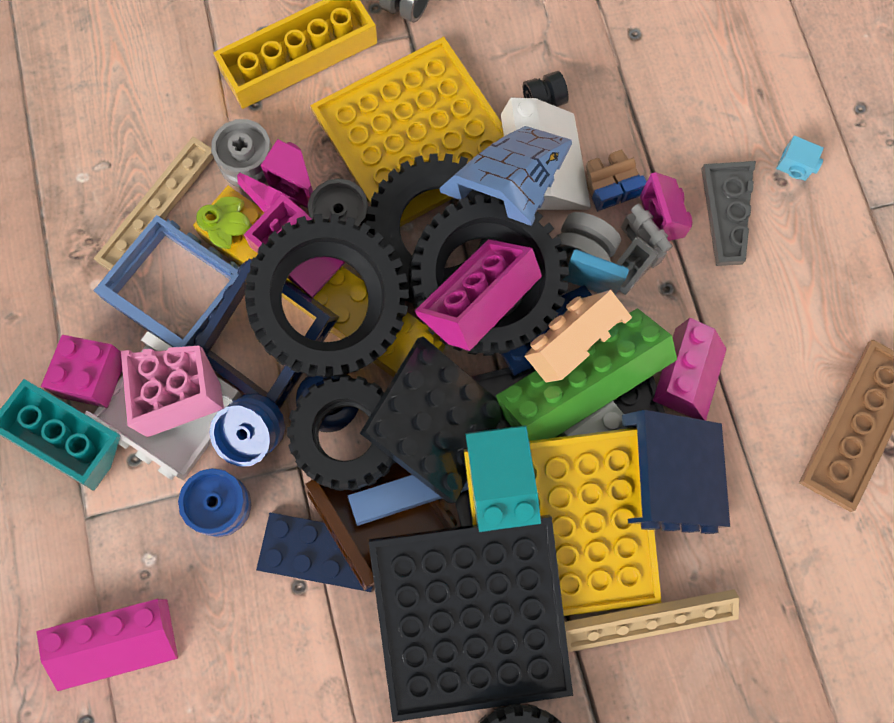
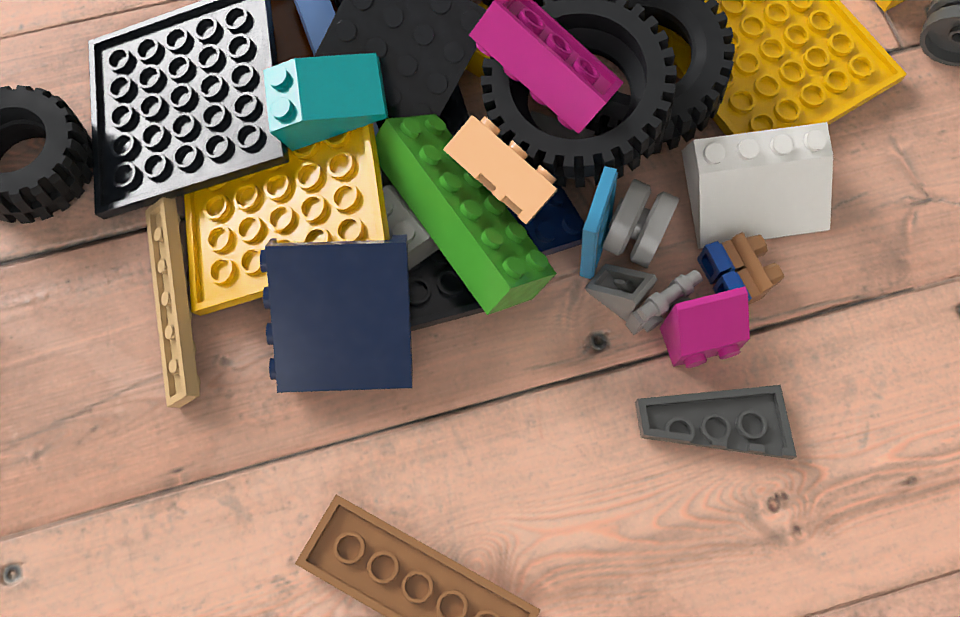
camera: 85 degrees right, 5 degrees down
(513, 170) = (718, 97): medium blue wedge -> none
(550, 89) = (853, 190): black wheel -> none
(692, 378) = (482, 355): dark pink slope -> none
(800, 158) = (810, 523): medium azure brick -> none

